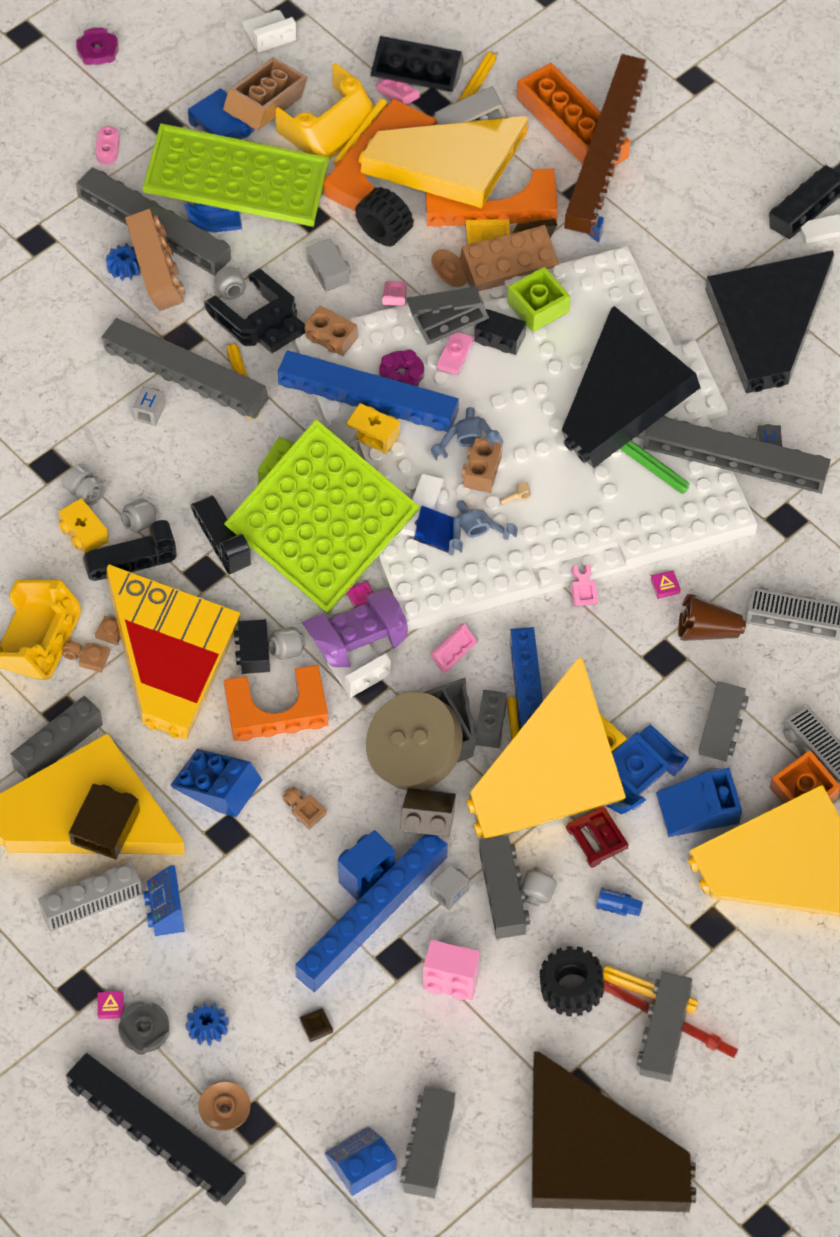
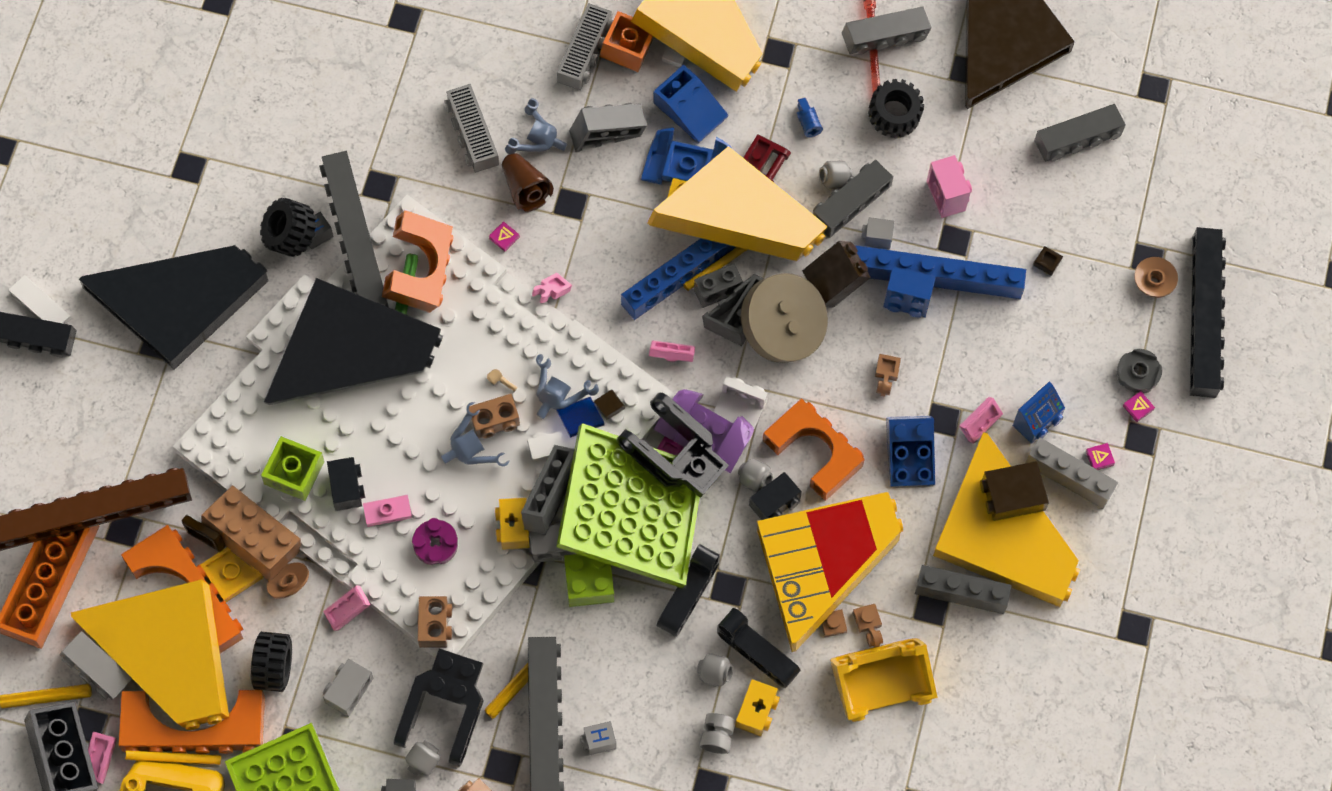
camera: 125 degrees left, 10 degrees up
(89, 938) = (1100, 456): none -> dark pink tile
(199, 856) = (981, 420): none -> bright pink plate
(211, 1031) = (1109, 322): blue gear -> none
(324, 588) = (694, 466): none -> black plate
(358, 387) = (478, 552): blue brick -> none
(362, 1160) = (1124, 168): blue slope -> none
(372, 445) = (548, 491): none -> dark grey brick
(432, 559) = (609, 404): none -> dark brown tile
(447, 312) = (359, 525): dark grey wedge -> none
(638, 985) = (862, 77): yellow axle -> none
(688, 504) = (435, 241): none -> arch
(752, 664) = (541, 134): none -> sand blue piece
(780, 412) = (288, 227): none -> black tyre

